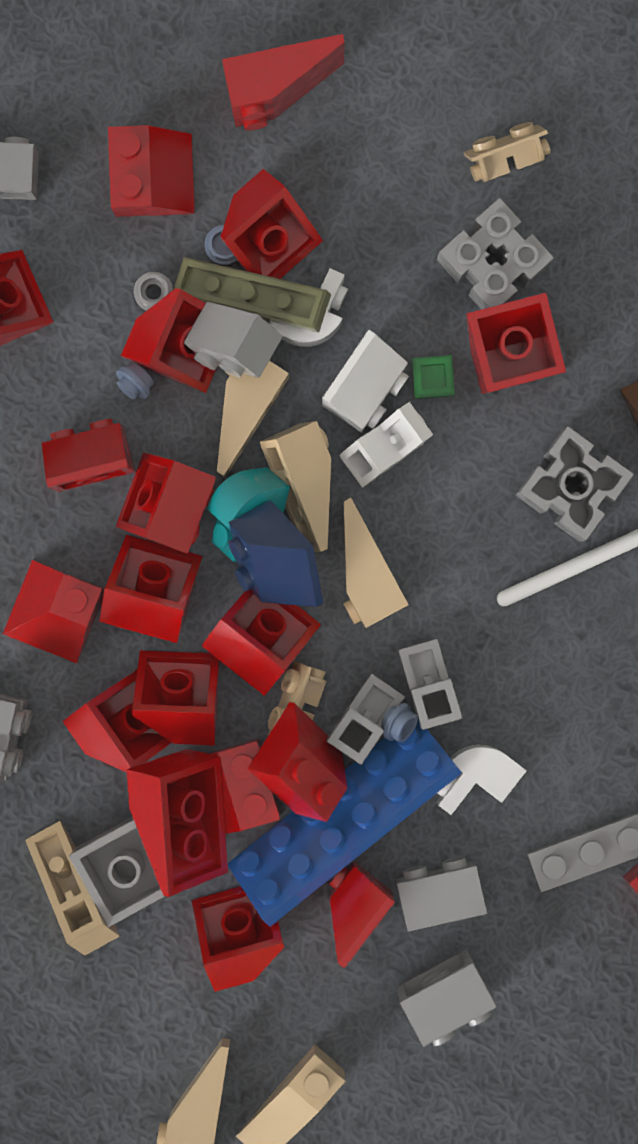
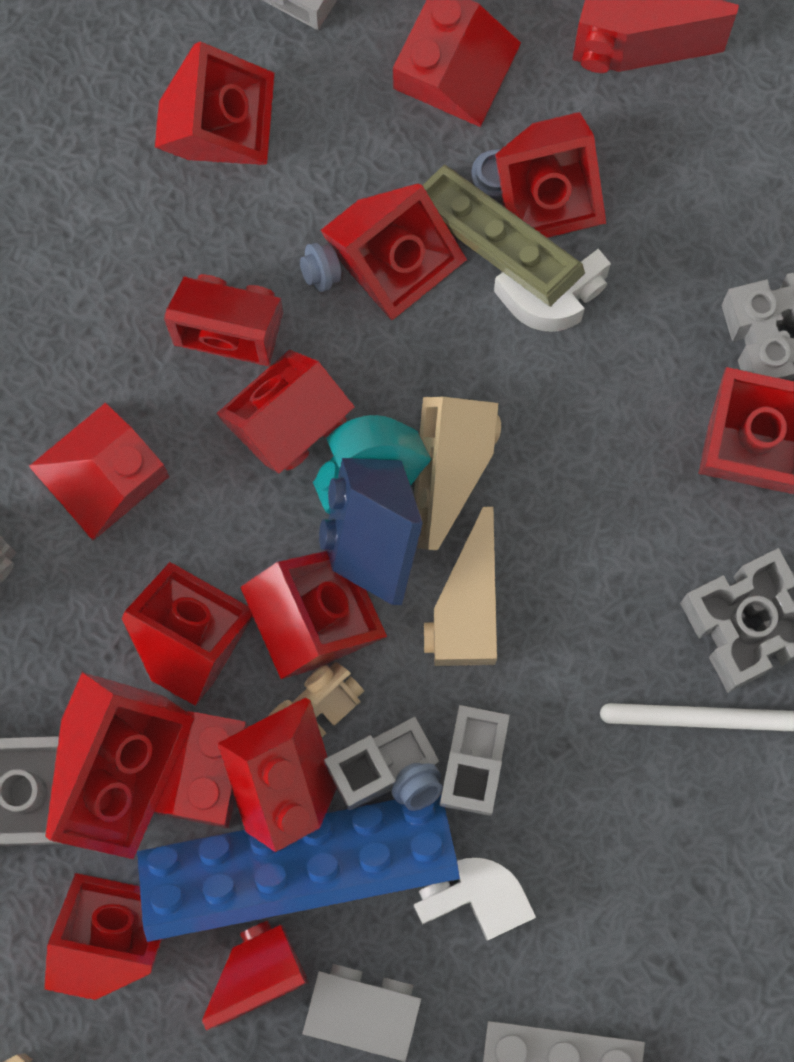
camera: 30 degrees right, 10 degrees down
(111, 732) = (88, 628): red slope -> none
(147, 280) = (390, 170): light grey plate -> none
(150, 589) = (216, 497): red slope -> none
(232, 340) = (451, 269): light grey brick -> none
(244, 408) = (436, 345): tan slope -> none
(365, 383) = (573, 390): white slope -> none
(386, 445) = (563, 472): white brick -> none
(433, 377) = (653, 427): green tile -> none

